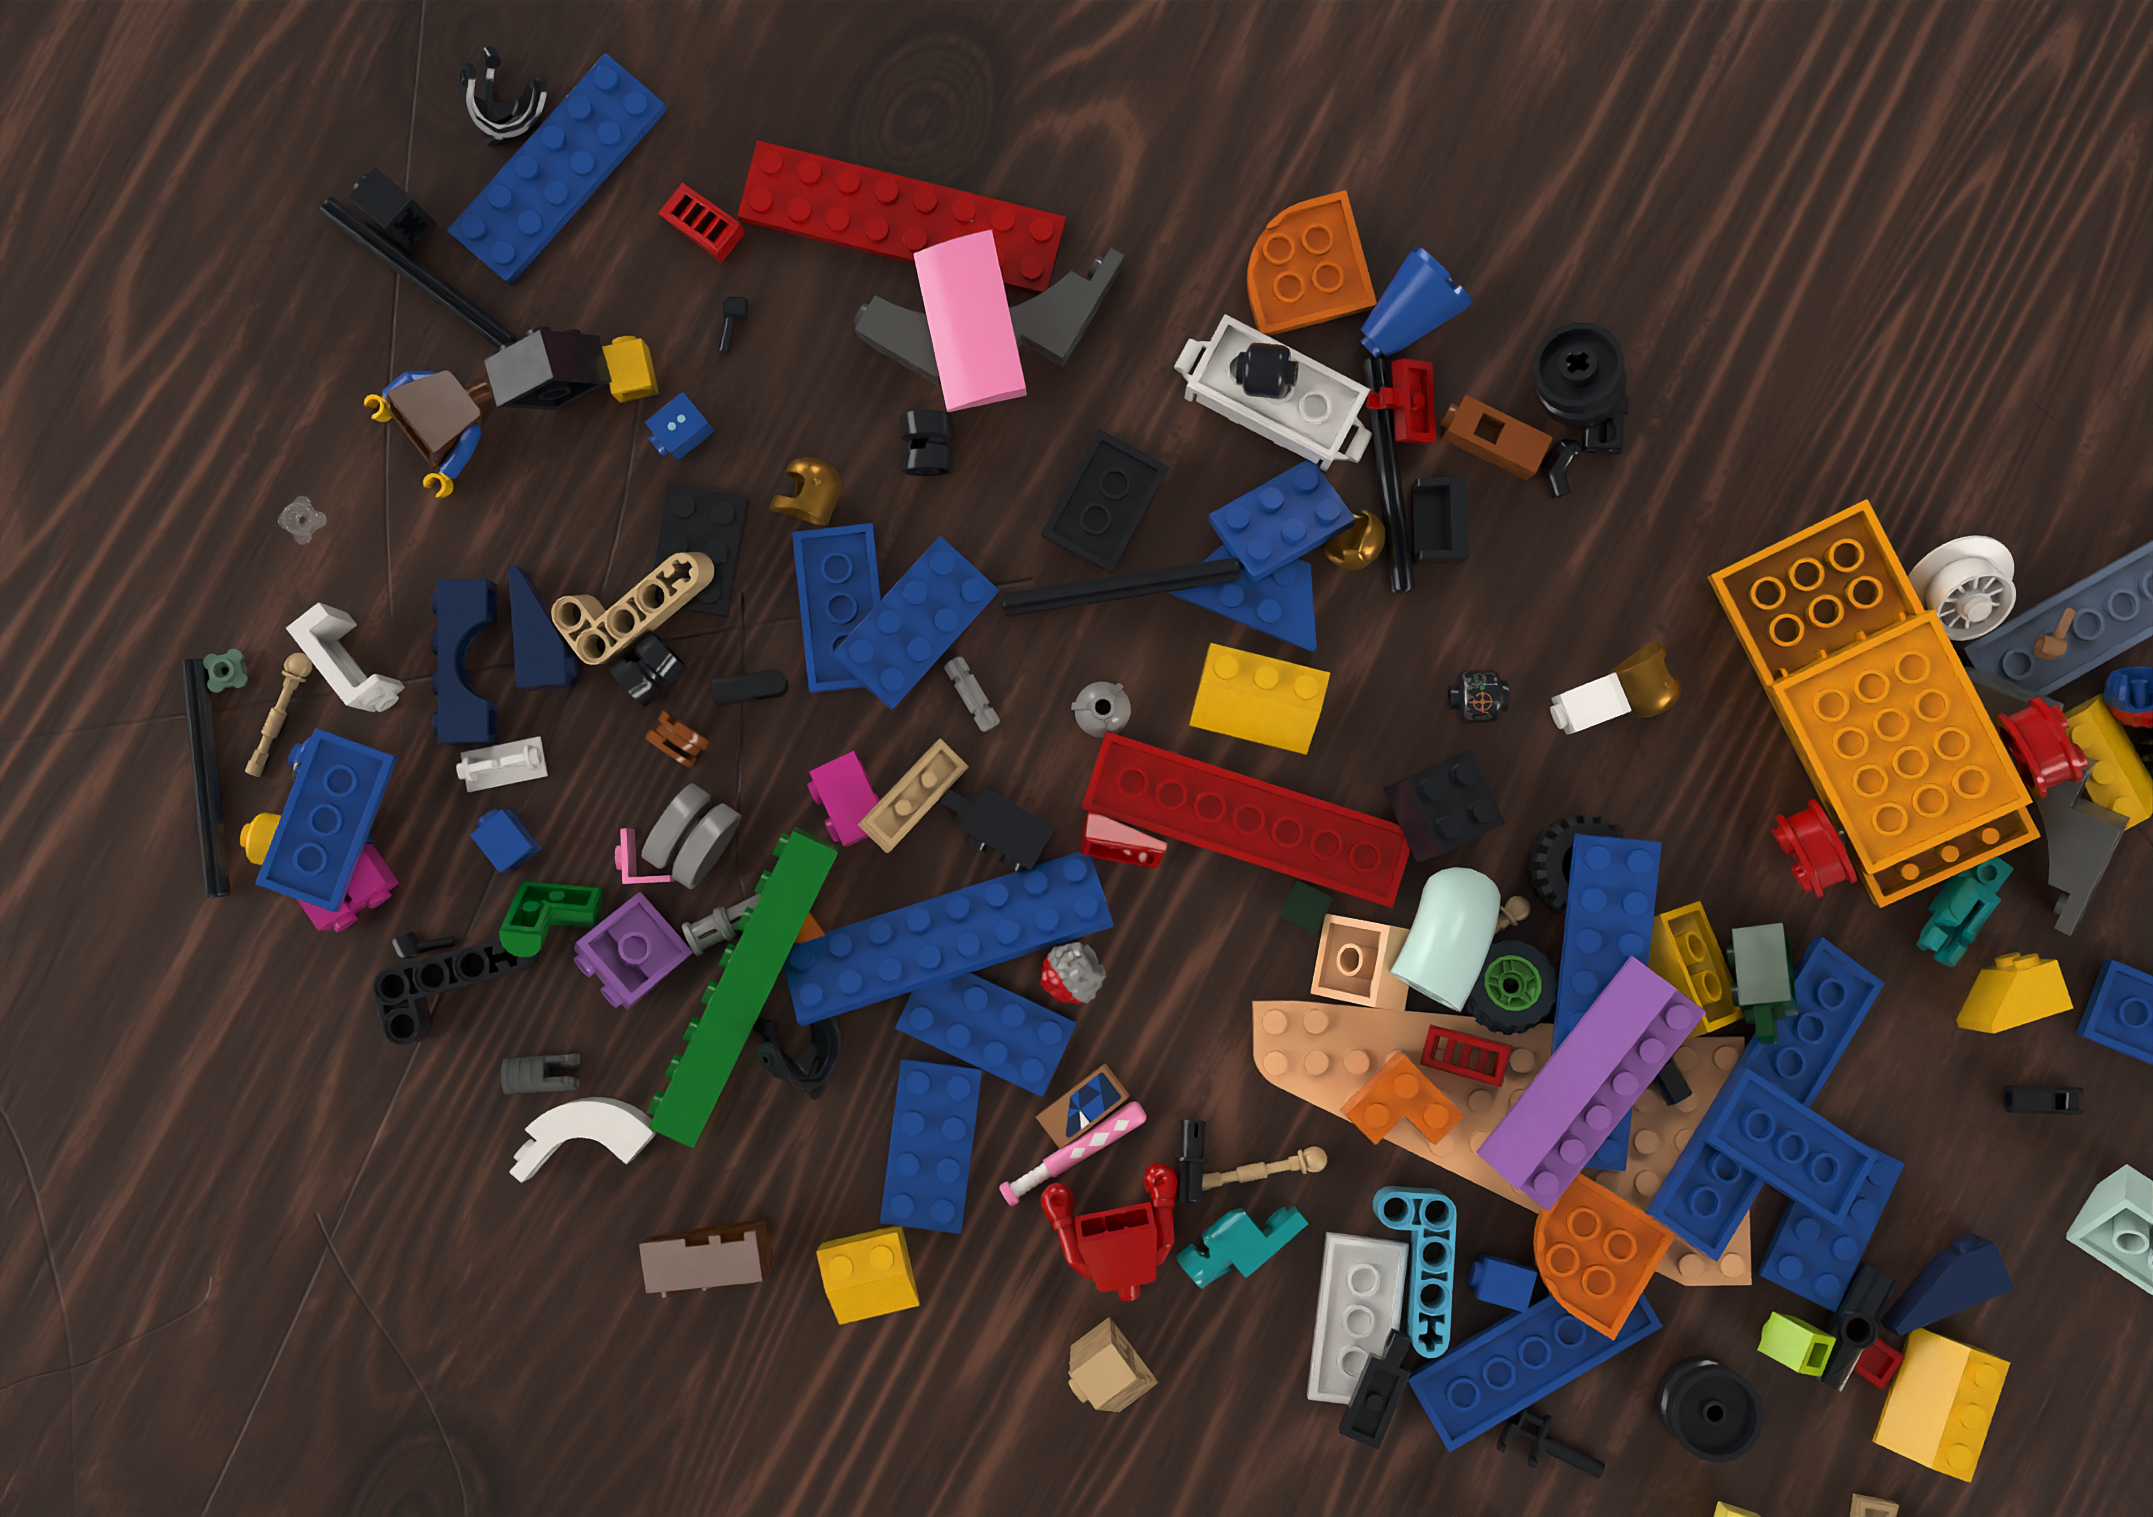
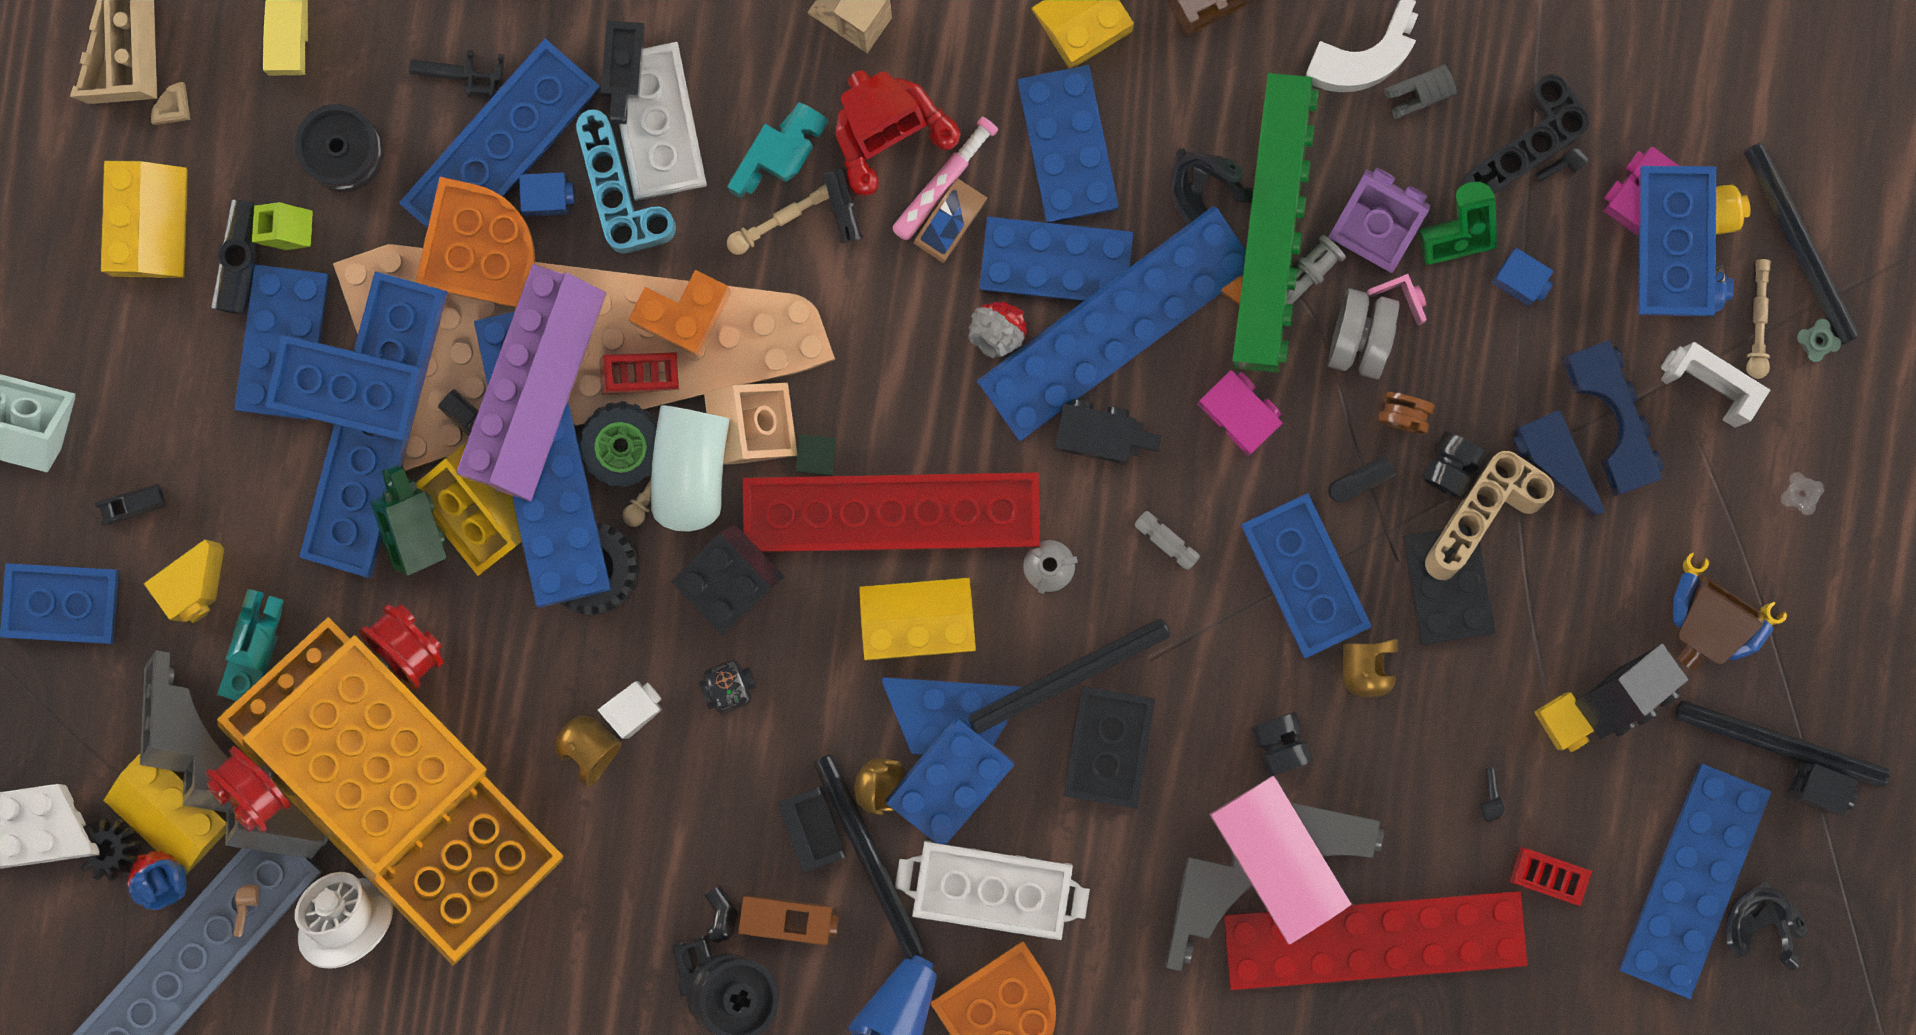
camera: 160 degrees right, 0 degrees up
(502, 764) = (1550, 342): white hinge -> none
(678, 428) = (1503, 684): blue brick -> none
(913, 795) = (1186, 433): tan tile -> none
(915, 623) = (1236, 583): blue plate -> none
(1119, 843) = (997, 453): red slope -> none
(1266, 370) = (1008, 897): black head -> none
(1410, 399) = (871, 926): red plate -> none
(1878, 1363) = (205, 235): red tile -> none
(1950, 1283) = (163, 323): dark blue slope -> none

